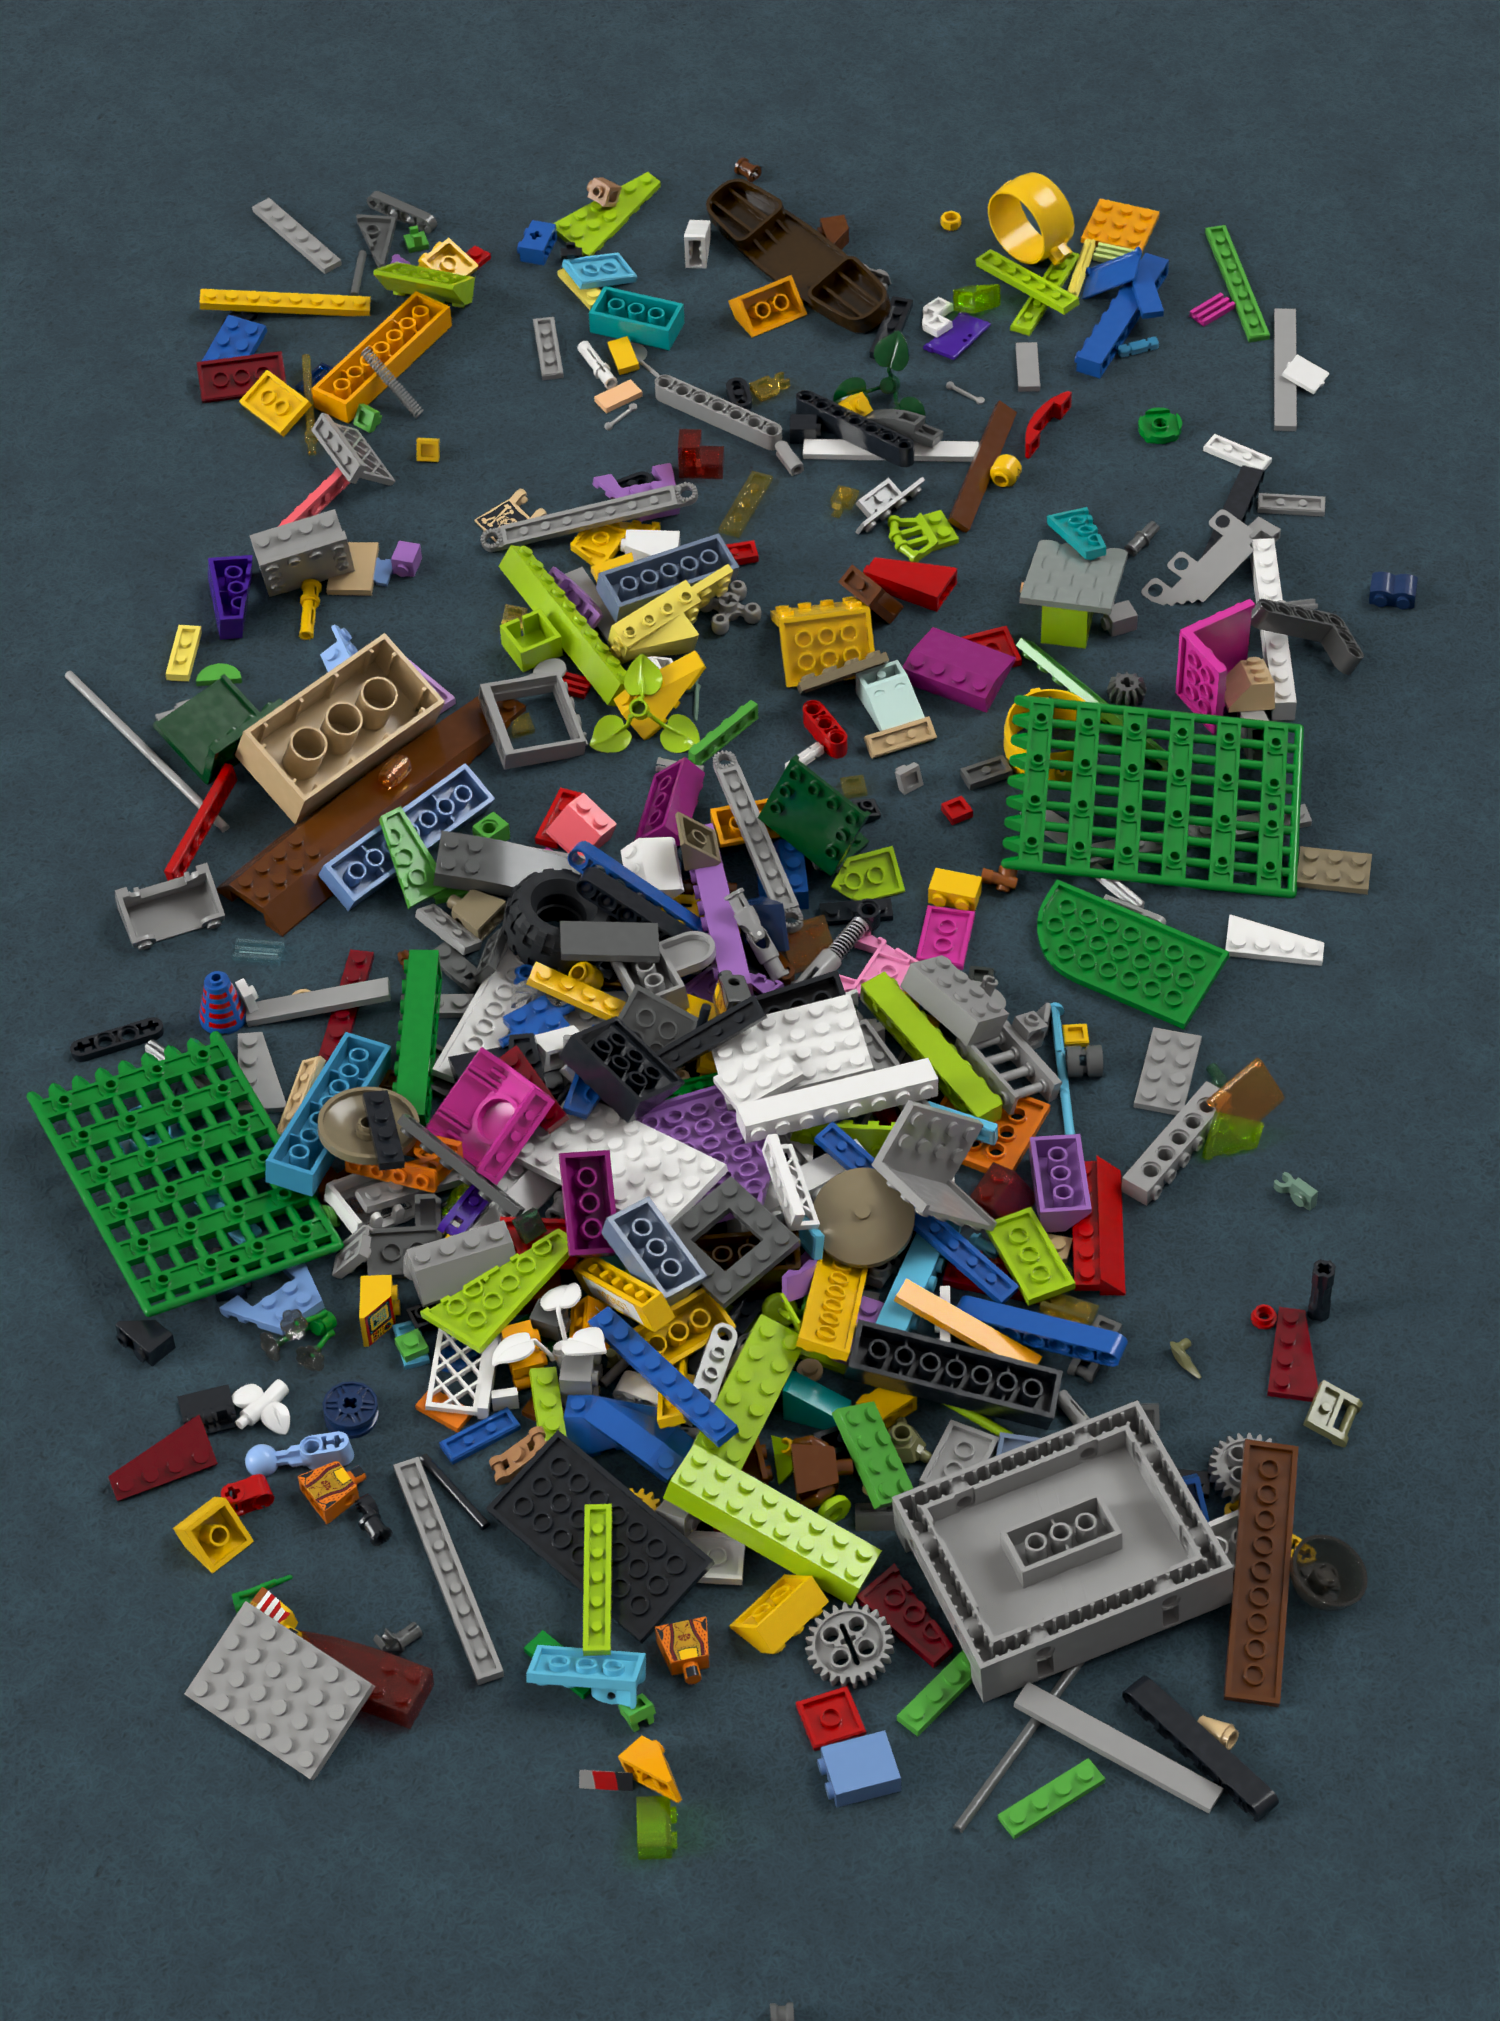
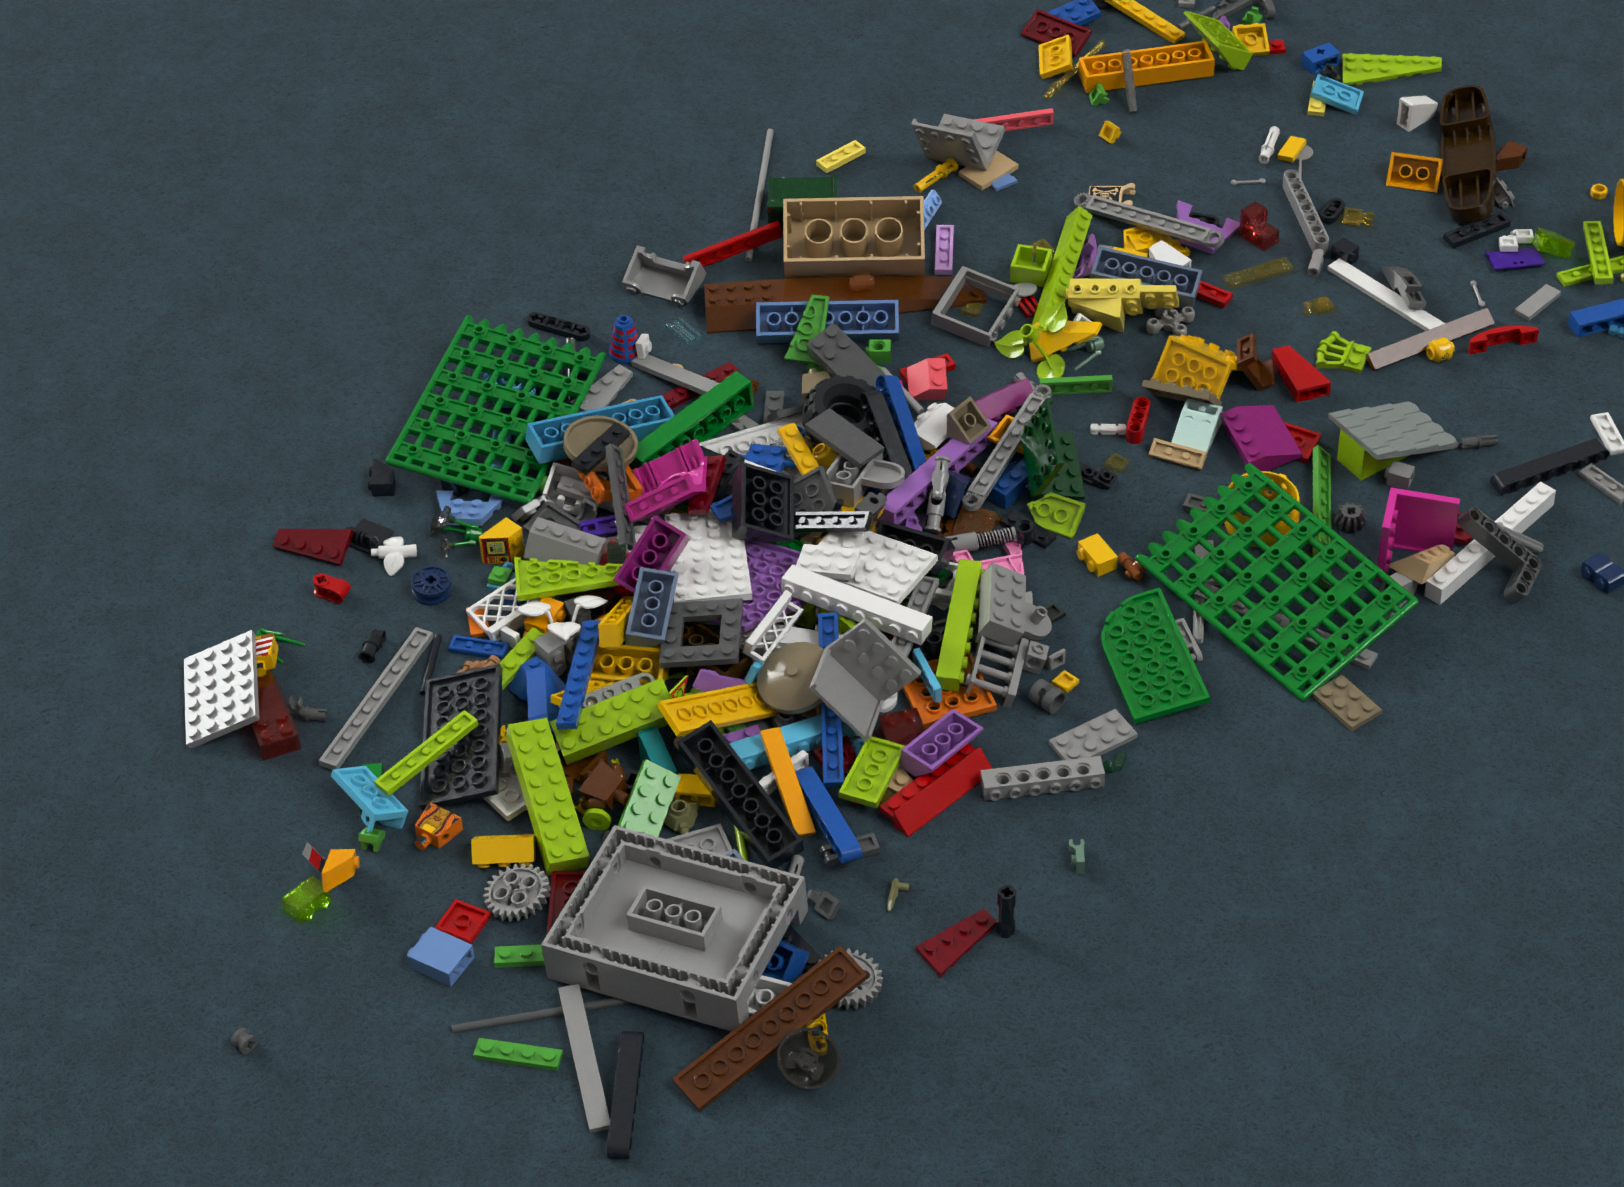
camera: 45 degrees right, 5 degrees down
(214, 672) = (846, 180): bright green tile -> none
(214, 1533) = (292, 595): yellow slope -> none
(230, 589) = (896, 142): dark purple wedge -> none
(311, 1452) = (389, 592): light blue beam -> none
(331, 1489) = (372, 615): torso -> none
(350, 452) = (1053, 100): light grey fence -> none
(406, 559) = (1021, 181): medium lavender brick -> none
(448, 929) = (792, 385): light grey plate -> none
(548, 348) = (1253, 120): light grey tile -> none
(604, 192) = (1389, 47): medium nougat brick -> none
(618, 396) = (1259, 169): light nougat tile -> none
(638, 316) = (1322, 131): teal brick -> none
(747, 169) = (1505, 91): reddish brown bush -> none
(857, 403) = (1388, 257): yellow brick -> none
(857, 429) = (1374, 269): black beam -> none
(882, 499) = (1341, 319): light grey bracket -> none
(890, 353) = (1434, 234): dark green plant -> none
(908, 777) = (1151, 478): light grey tile -> none
(946, 934) = (1061, 577): dark pink tile -> none
(956, 810) = (1158, 514): red plate -> none
(1056, 1011) = (1068, 659): medium azure bar -> none
(1070, 1308) = (861, 819): clear yellow bracket -> none
(1079, 531) = (1438, 410): teal wing -> none
(1170, 424) = (1569, 383): green plate -> none
(1207, 574) = (1496, 484): light grey piece -> none
(1220, 1730) = (646, 1095): tan cone -> none
(1230, 1134) = (1079, 796): clear neon green wing -> none
(1249, 1093) = (1114, 784): clear orange piece -> none
(1263, 1310) = (968, 902): red plate -> none
(1264, 530) = (1562, 484): light grey piece -> none
(1264, 942) = (1250, 714): white wing -> none
(1325, 1411) = (933, 979): plate -> none

